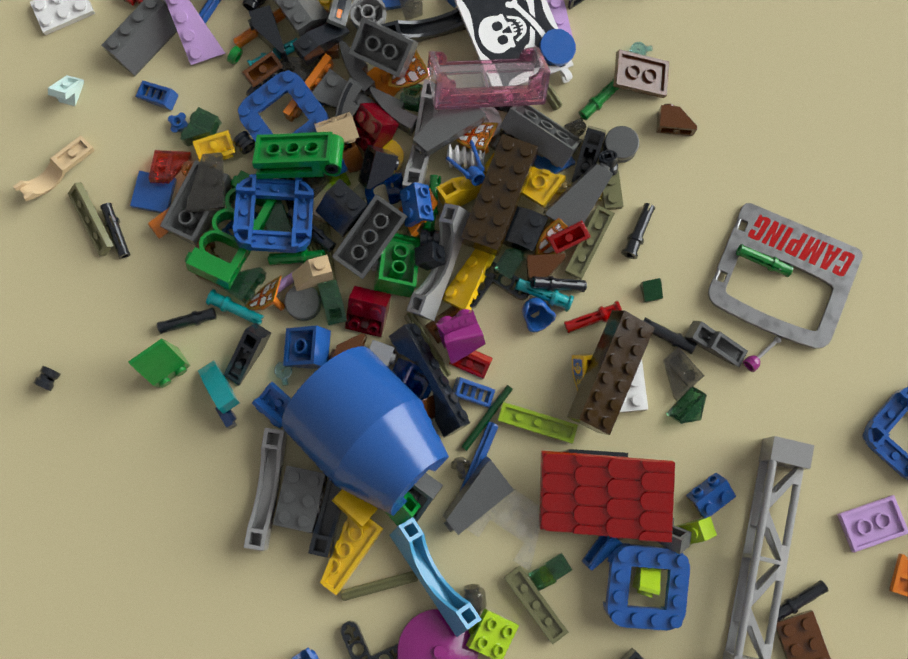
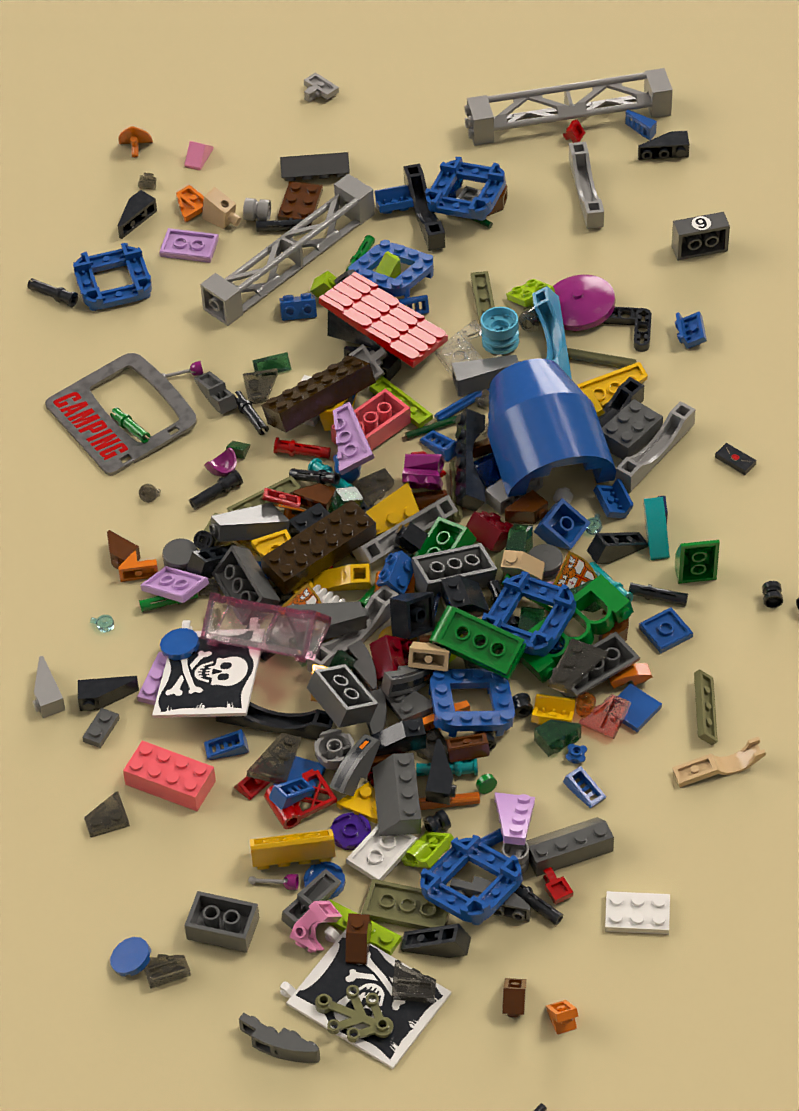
camera: 150 degrees left, 30 degrees down
(67, 90) = (671, 826): light aqua slope -> none
(83, 370) = (772, 594): none -> black wheel
(107, 211) = (686, 696): black pin -> none
(163, 287) = (665, 630): none -> blue tile
(189, 522) = (735, 458): none -> black tile
(473, 173) = (330, 566): blue plant -> none
(500, 566) = (500, 330): none -> medium azure wheel
(503, 311) = (374, 486): none -> clear smoke wing
(538, 322) = (351, 440): none -> lavender wing
(546, 373) = (380, 418): none -> coral brick
(550, 572) = (460, 314): clear green slope -> none
(591, 441) = (374, 358): none -> light grey hinge
(603, 106) = (174, 584): none -> lavender tile
(641, 73) = (120, 595): plate -> none
(650, 111) = (136, 570): none -> orange slope
(653, 257) = (222, 464): none -> magenta helmet
(695, 198) = (148, 493): none -> clear smoke plate
(698, 623) = (364, 247): none -> green pin
(837, 604) = (257, 209): none -> light grey wheel
(878, 580) = (219, 209): none -> tan torso

